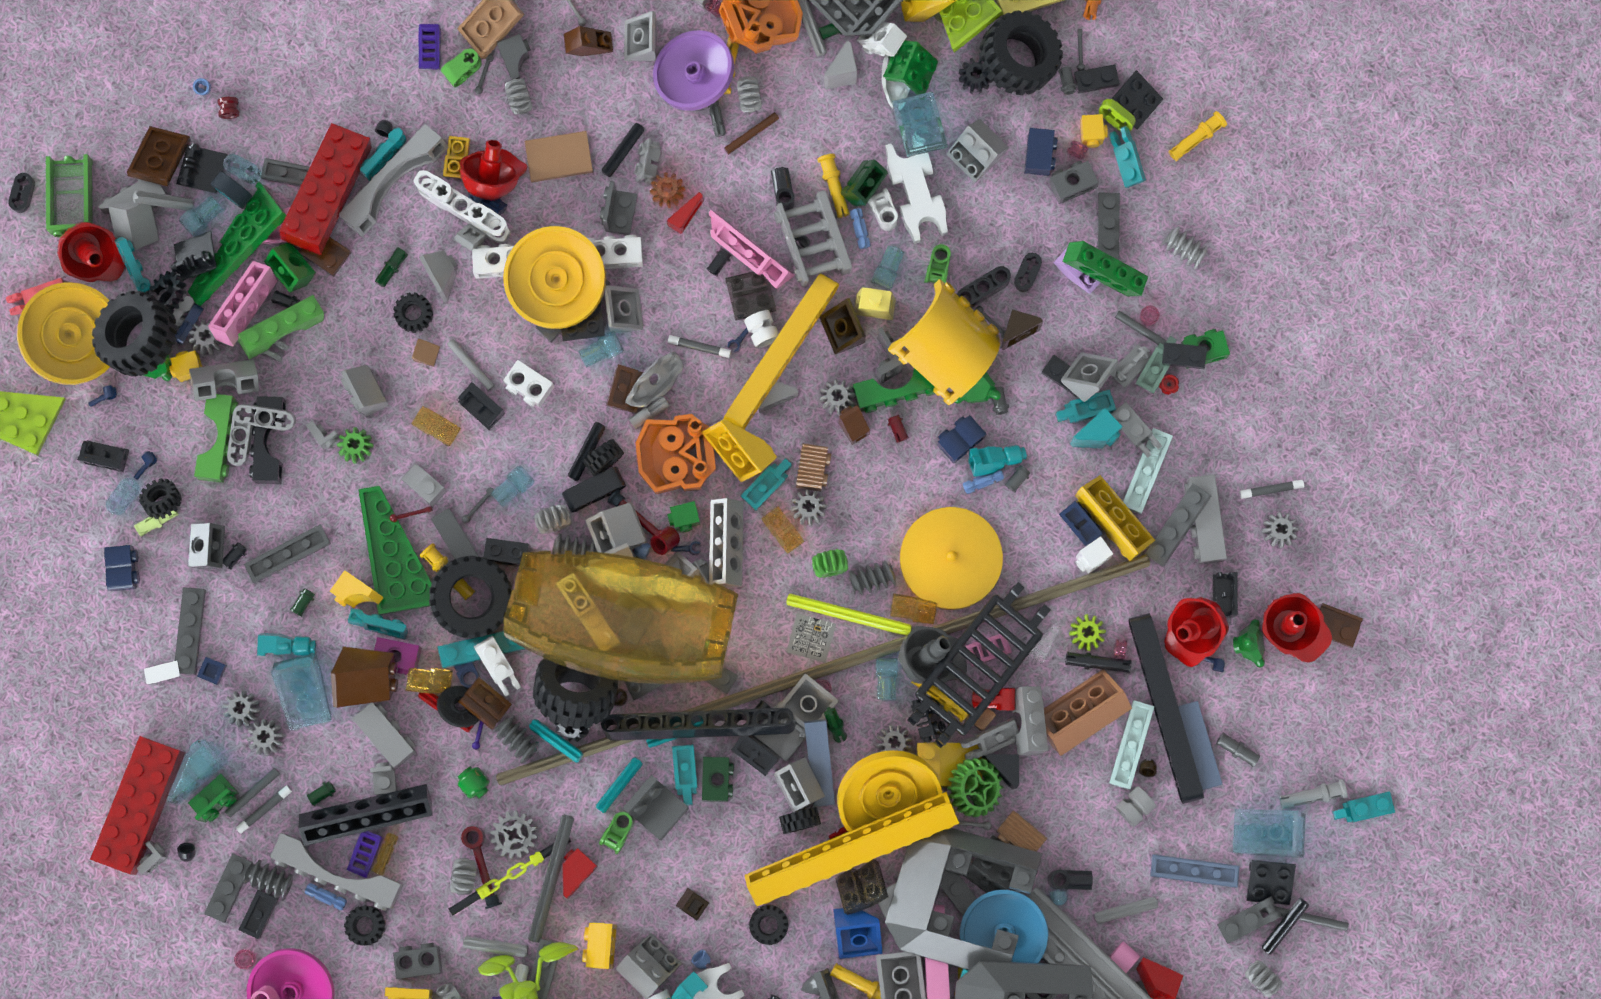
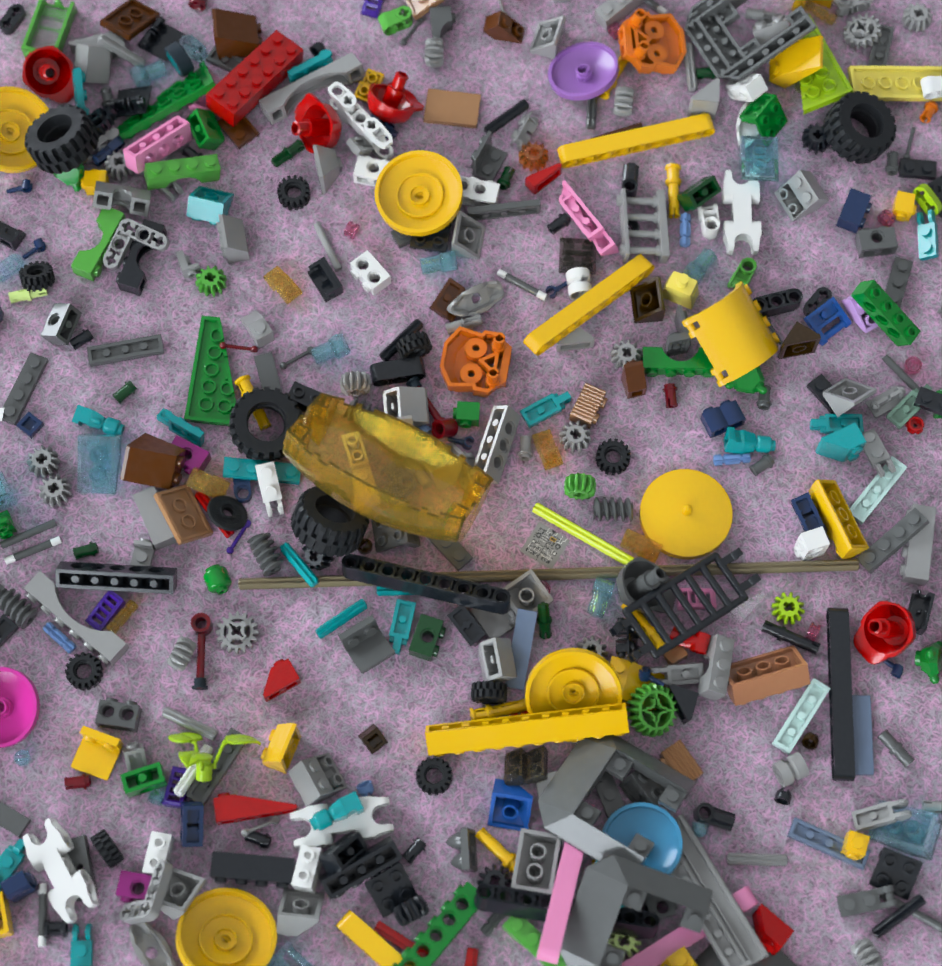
camera: 15 degrees right, 10 degrees down
(164, 259) = (106, 96): none -> dark grey pin
(286, 139) = (235, 33): none -> reddish brown slope
(323, 355) = (208, 204): none -> slope
(353, 591) = (169, 394): yellow arch -> none
(413, 723) = (183, 514): none -> medium nougat tile
(414, 226) = (316, 123): none -> red piece
(425, 352) = (293, 226): medium nougat slope -> none
(484, 891) = (194, 671): piece -> none
(485, 703) = (249, 516): reddish brown plate -> none
(491, 338) = (351, 230): none -> clear pink bush
(551, 878) = (257, 678): dark grey axle -> none
(617, 833) = (326, 657): bright green piece -> none
(644, 225) = (505, 178): none -> dark green pin
(653, 265) = (504, 210): none -> dark grey tile
(739, 449) = (530, 368): yellow slope -> none
(758, 536) = (525, 448): none -> light grey pin
(775, 137) = (635, 140): none -> yellow beam
(807, 839) = (498, 710): none -> yellow pin
(864, 527) = (616, 446): none -> black tyre
(958, 753) = (645, 675): none -> dark blue hand
(987, 825) = (652, 748): light grey hinge -> none
(1039, 287) = (824, 315): none -> blue plate
(1135, 837) = (783, 797): none -> black hinge
(1222, 868) = (855, 845): none -> yellow brick
(1239, 827) = (880, 815): none -> light grey hinge

